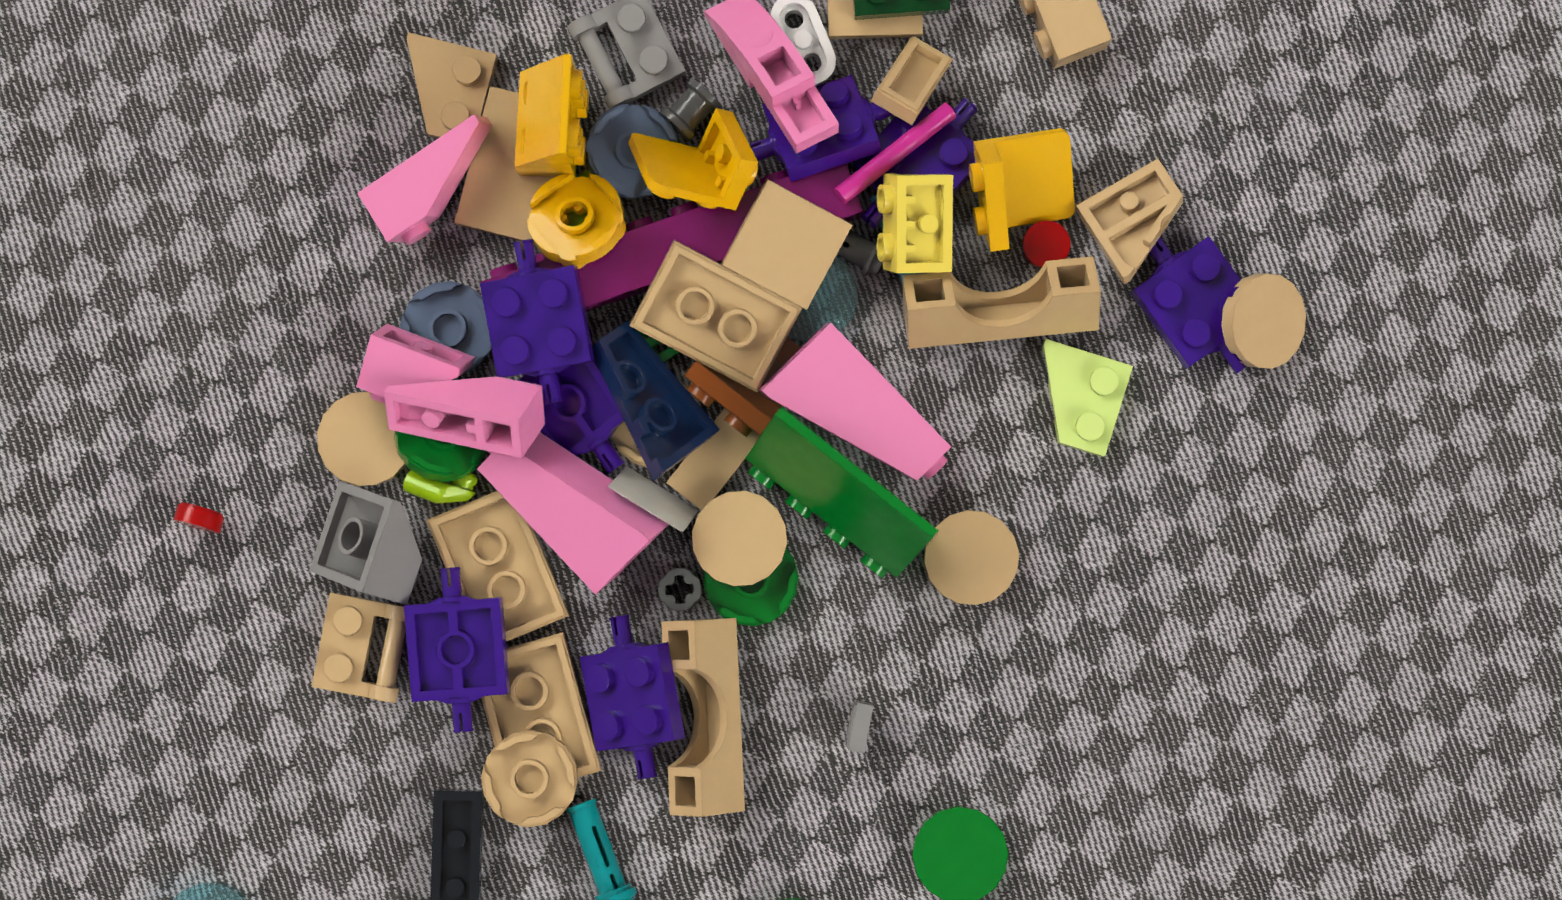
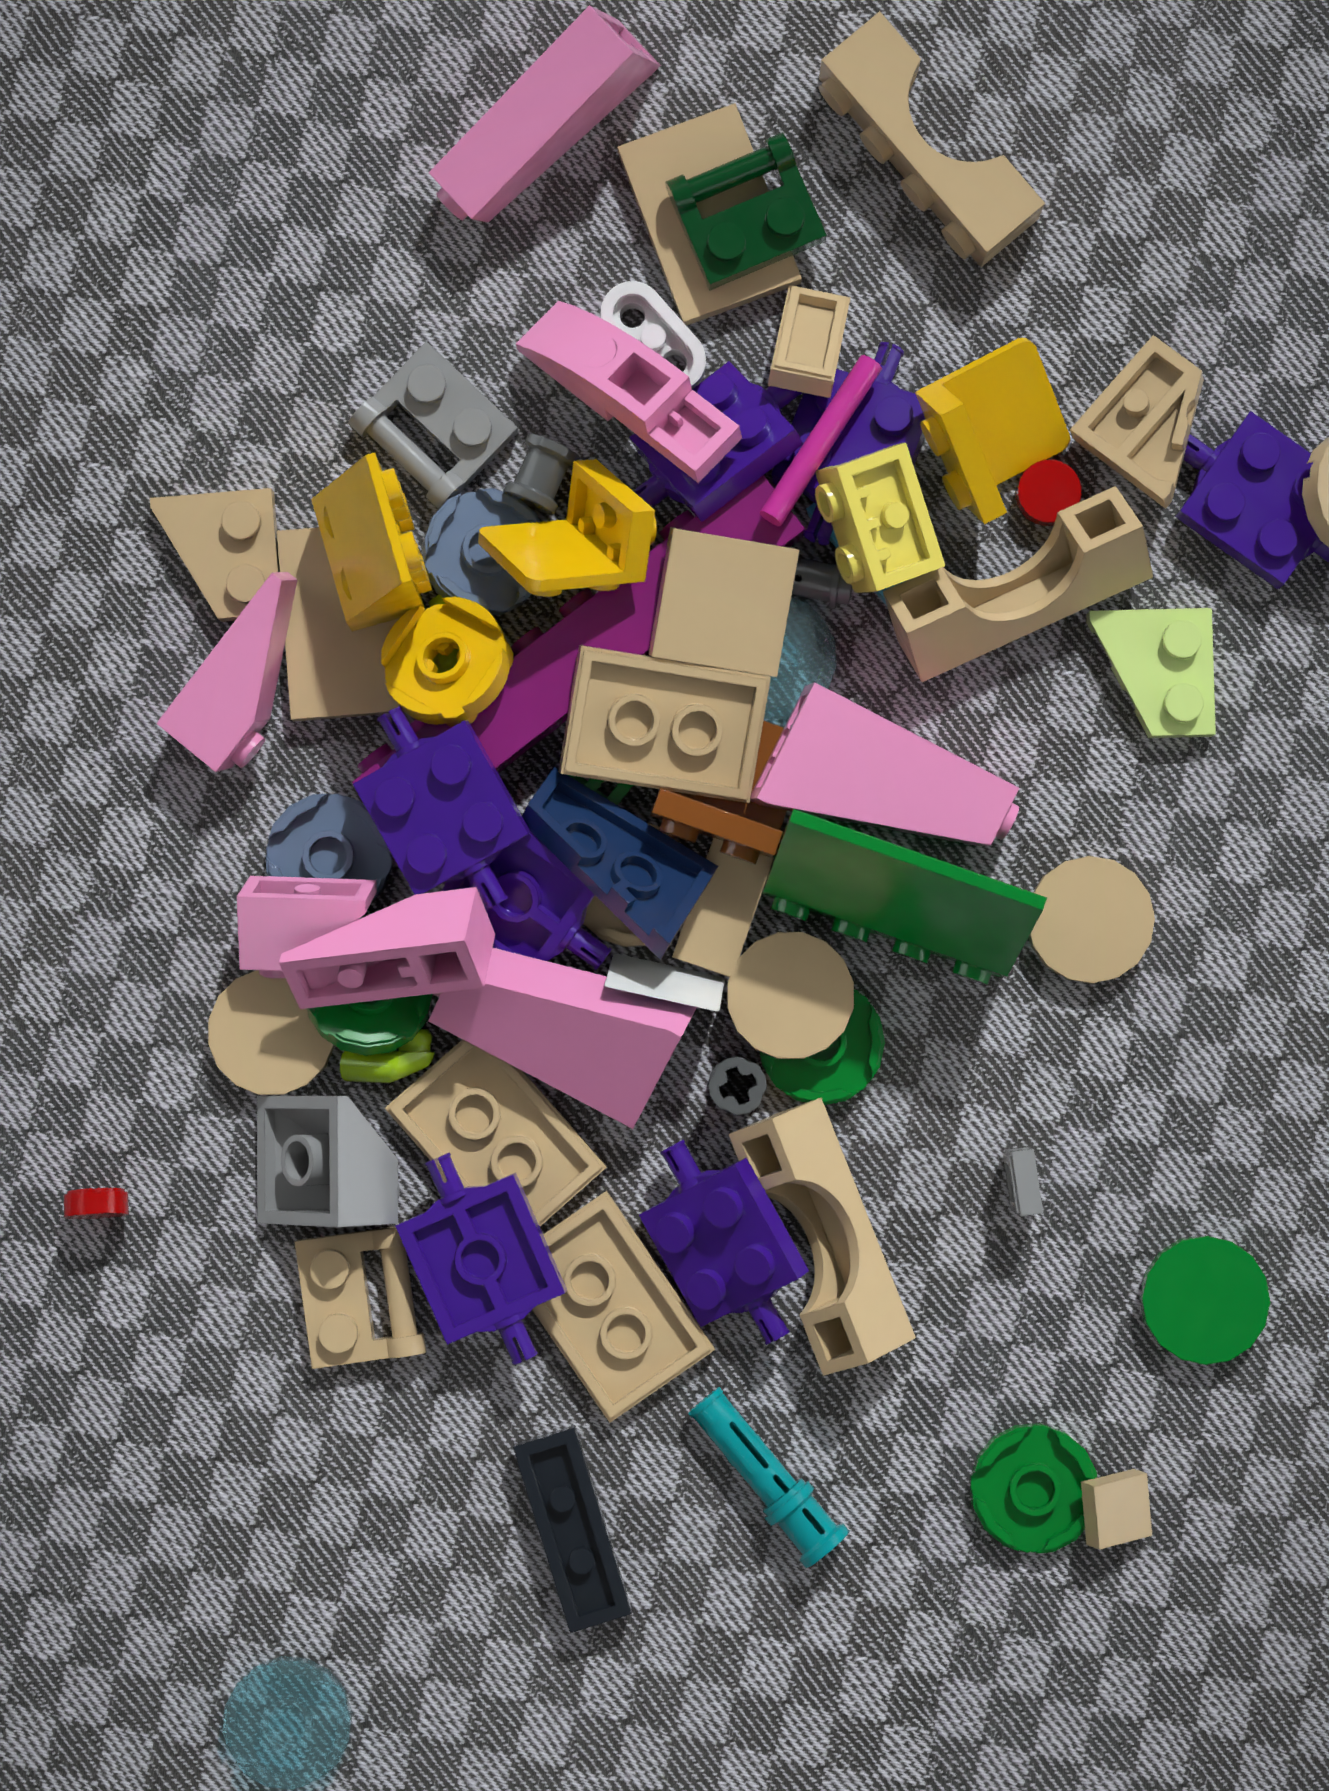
camera: 10 degrees left, 0 degrees up
(529, 778) = (629, 1390): tan tile -> none

